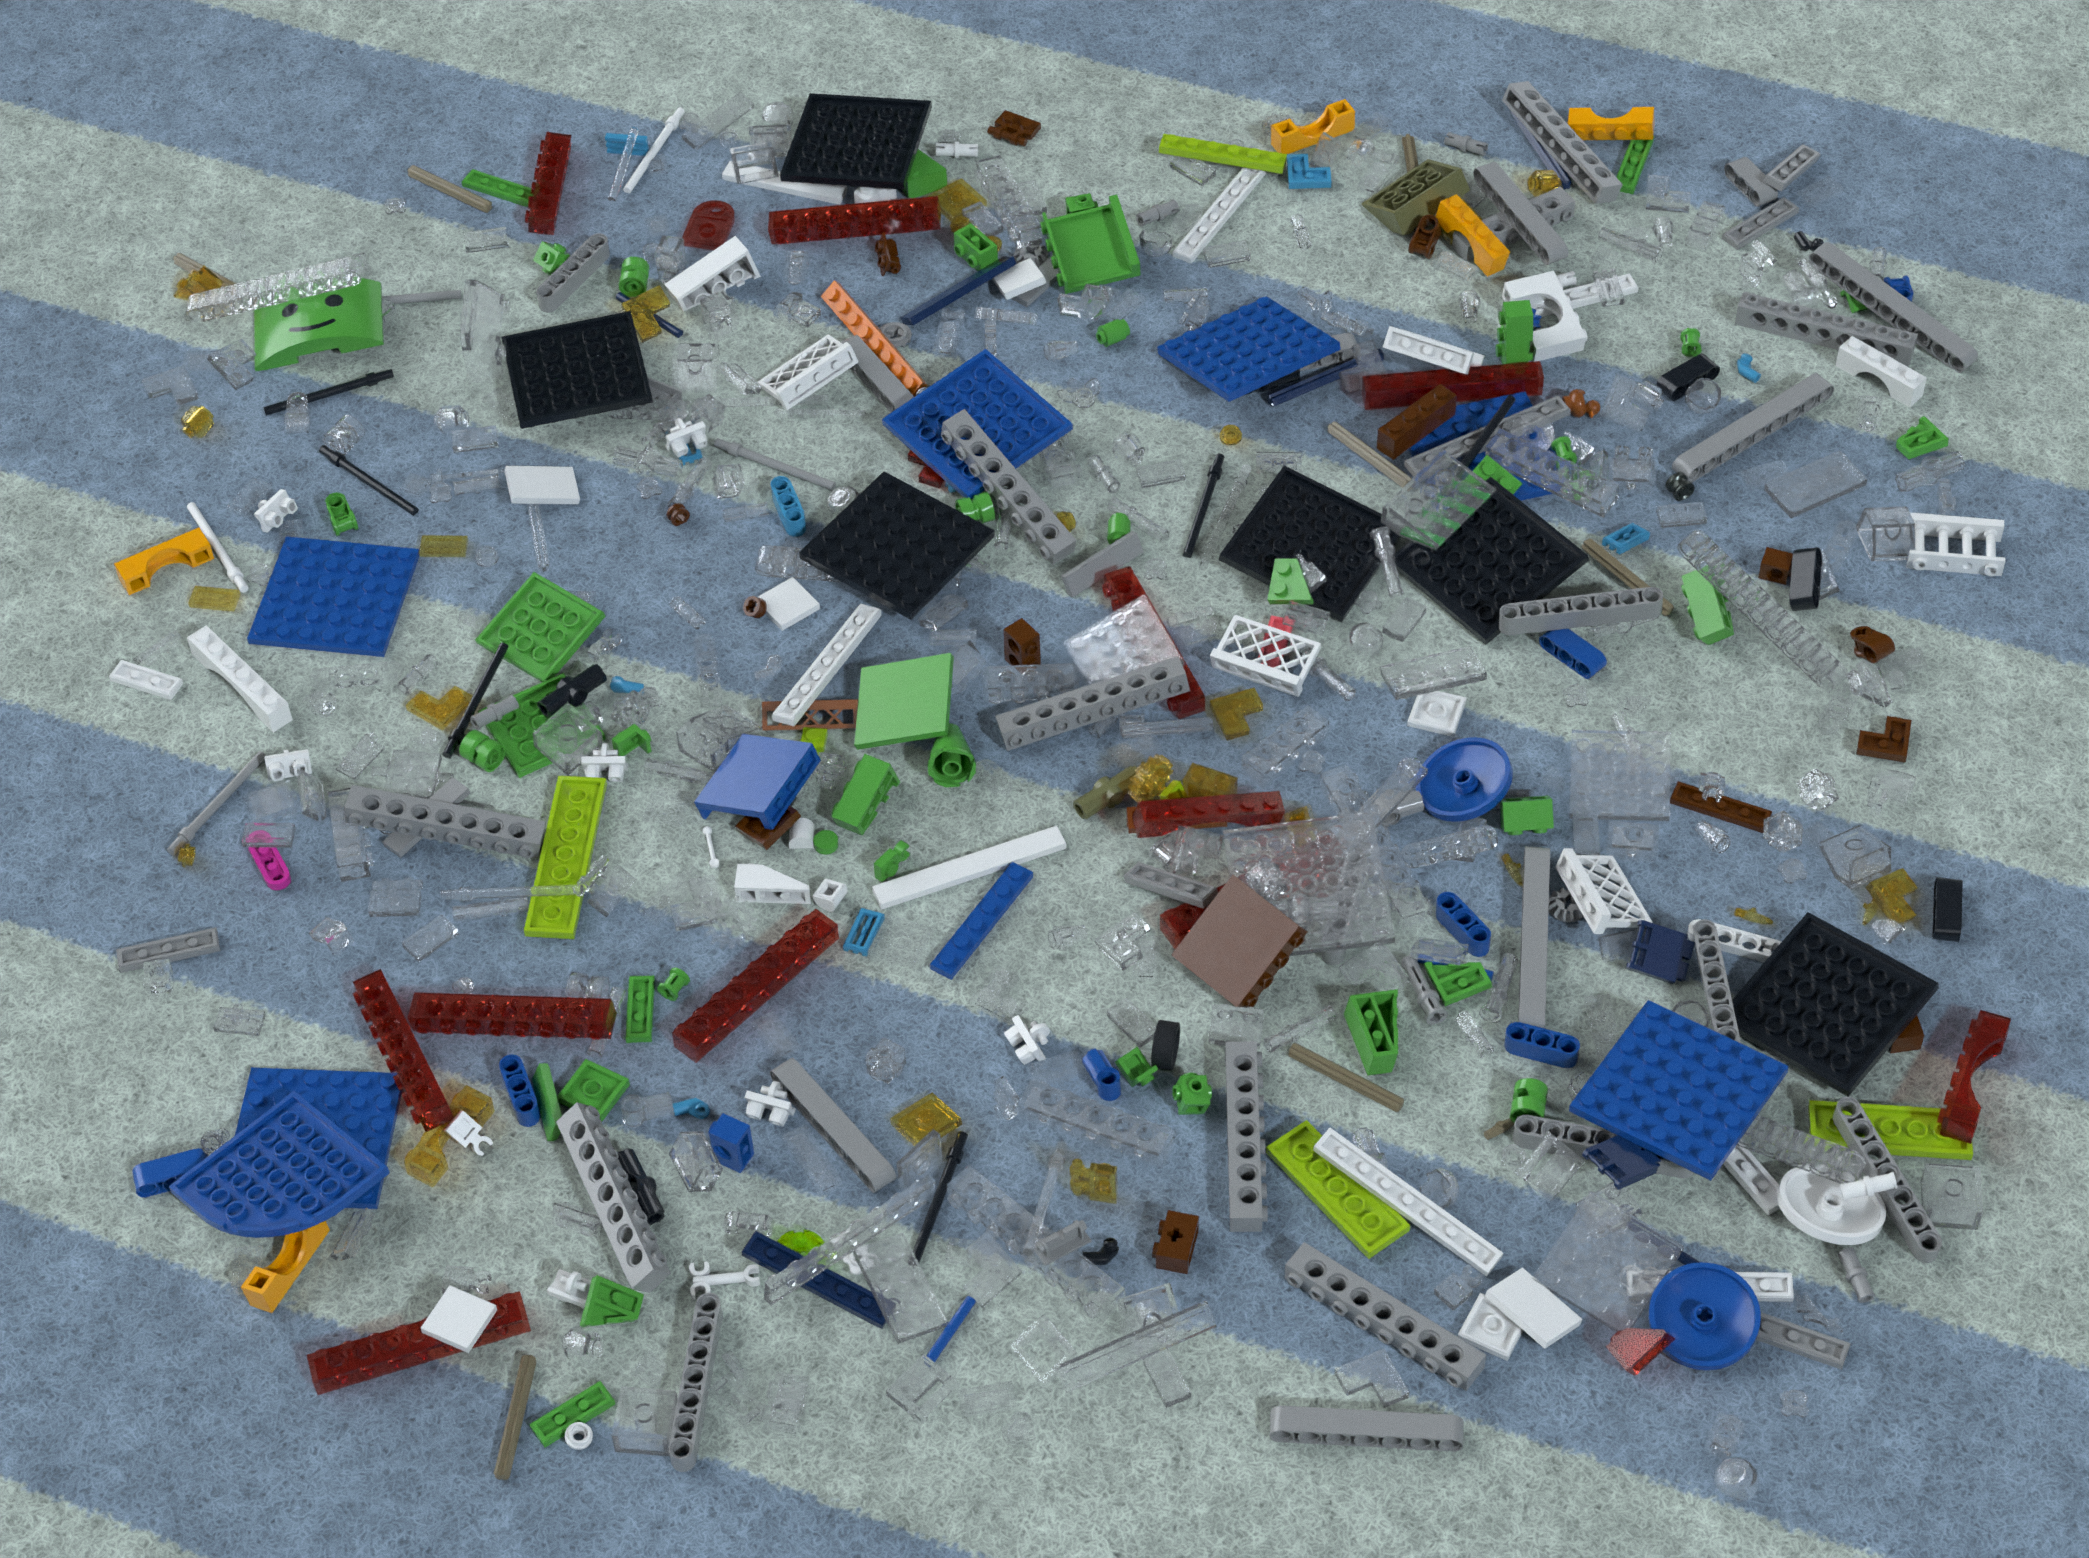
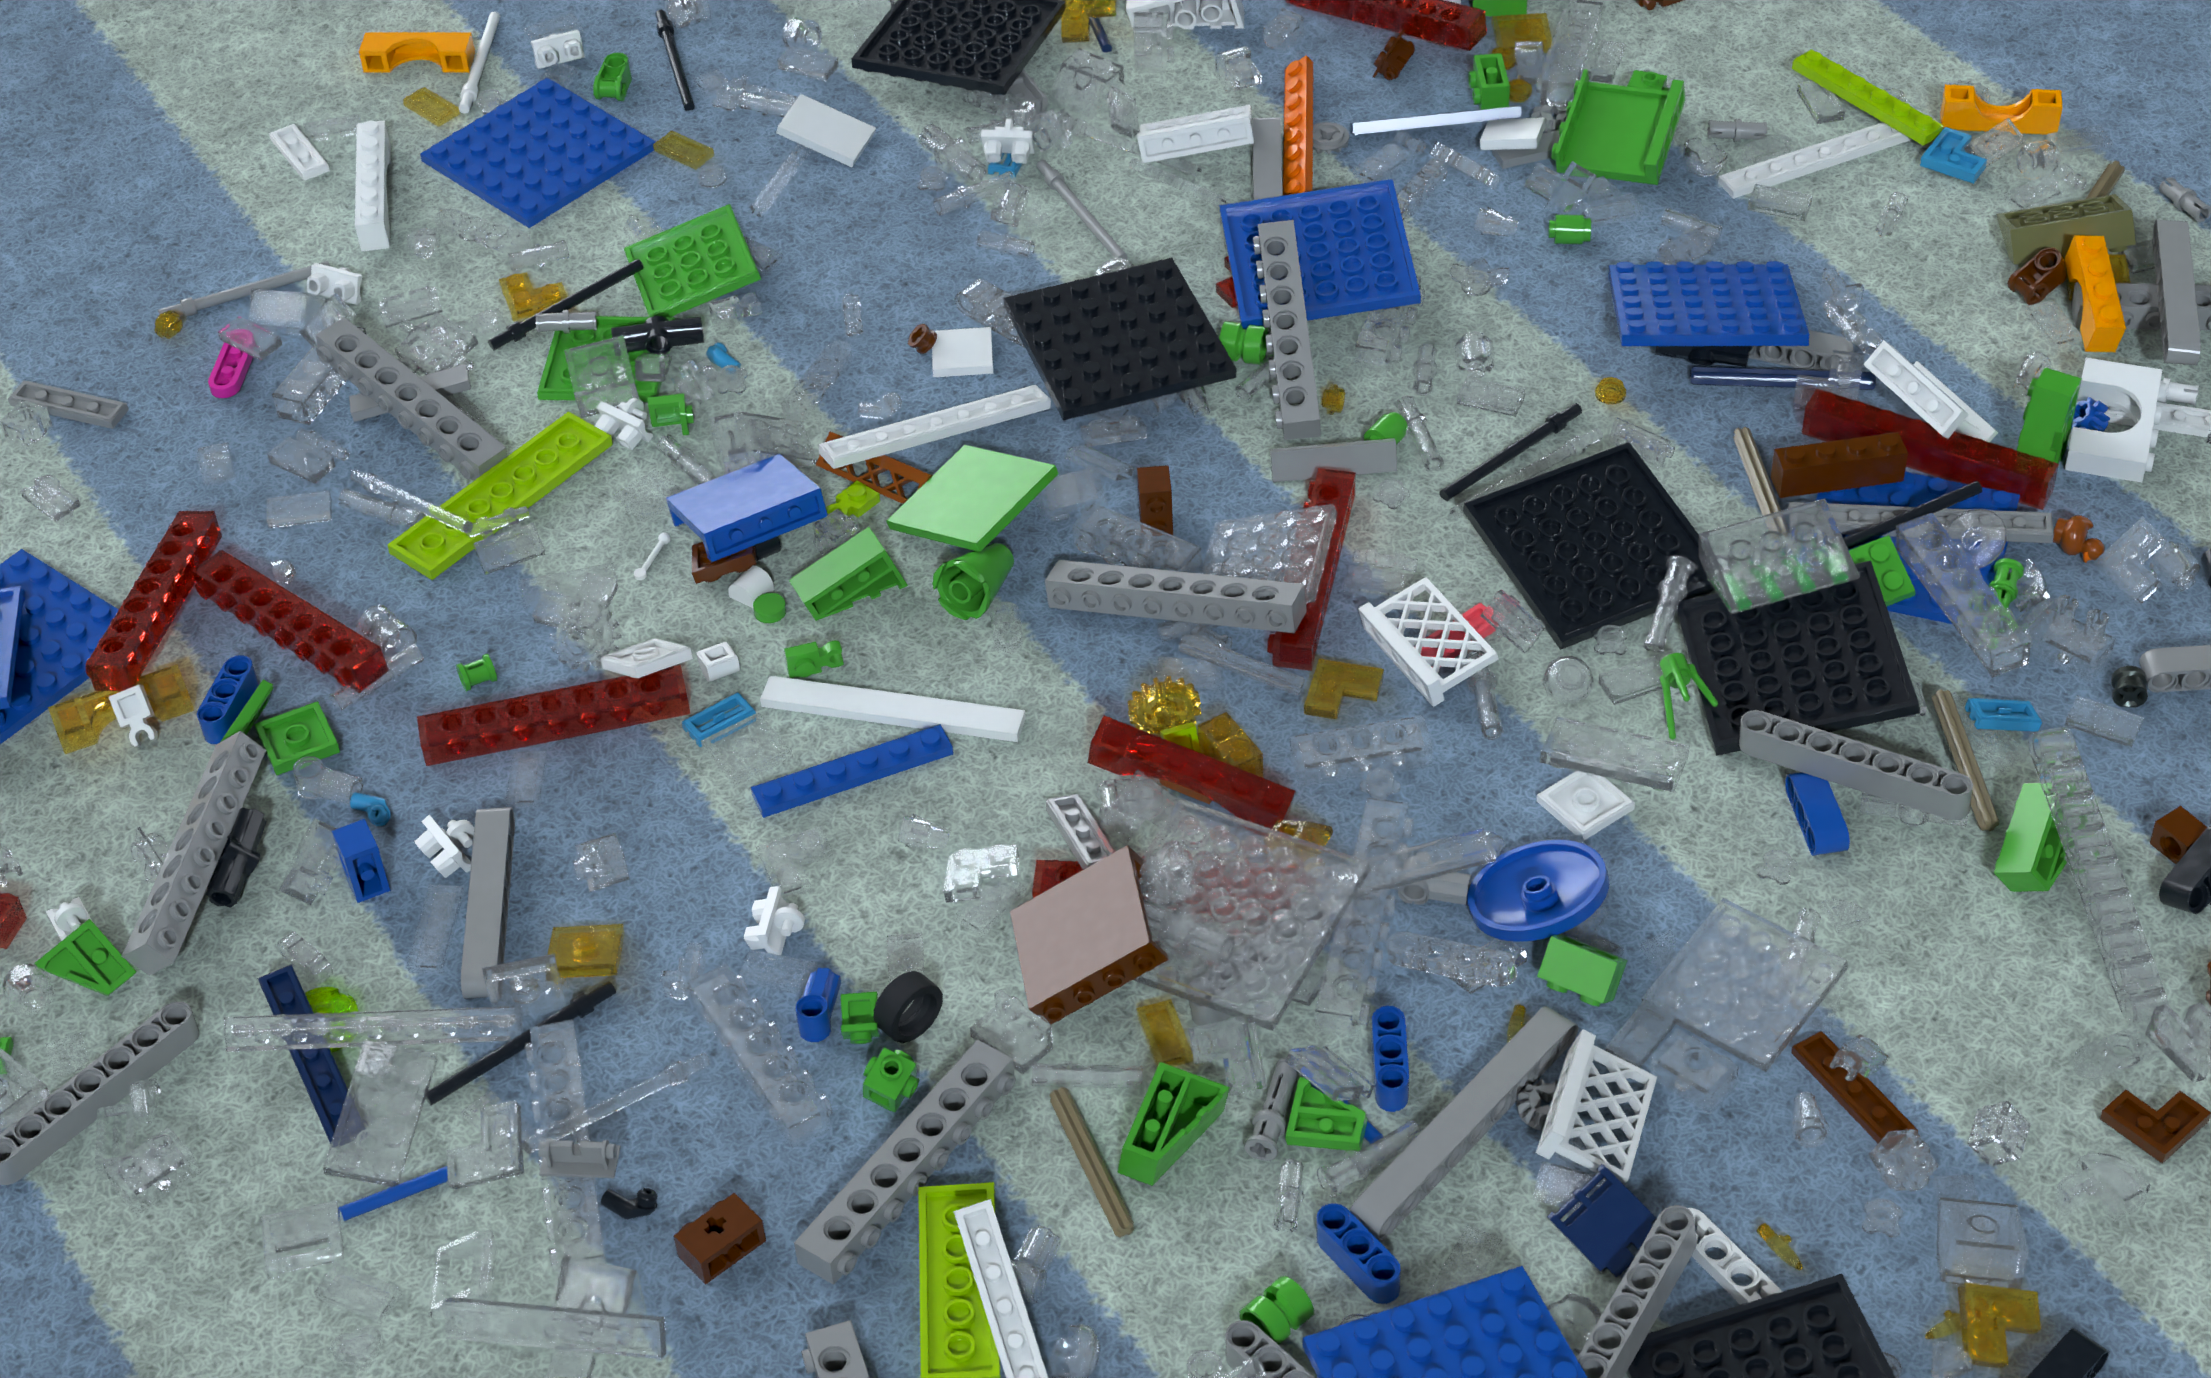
camera: 35 degrees right, 5 degrees down
(482, 750) = (520, 353): bright green wheel -> none
(640, 1009) = (424, 682): bright green tile -> none
(678, 514) = (932, 222): reddish brown bush -> none
(703, 1280) = (214, 990): white bar -> none
(765, 885) = (657, 615): white slope -> none
(785, 915) = (646, 658): none -> white tile
(788, 506) = (1051, 254): dark azure beam -> none
(1098, 1181) = (687, 1113): clear yellow plate -> none
(1105, 793) = (1108, 701): olive piece -> none
(1288, 583) = (1516, 569): bright green wing -> none
(1312, 574) = (1549, 572): clear plate -> none
(1320, 980) = (1164, 1034): none -> clear yellow tile
(1433, 603) = (1677, 675): none -> bright green plant
(1499, 1128) = (1214, 1325): dark tan helmet -> none

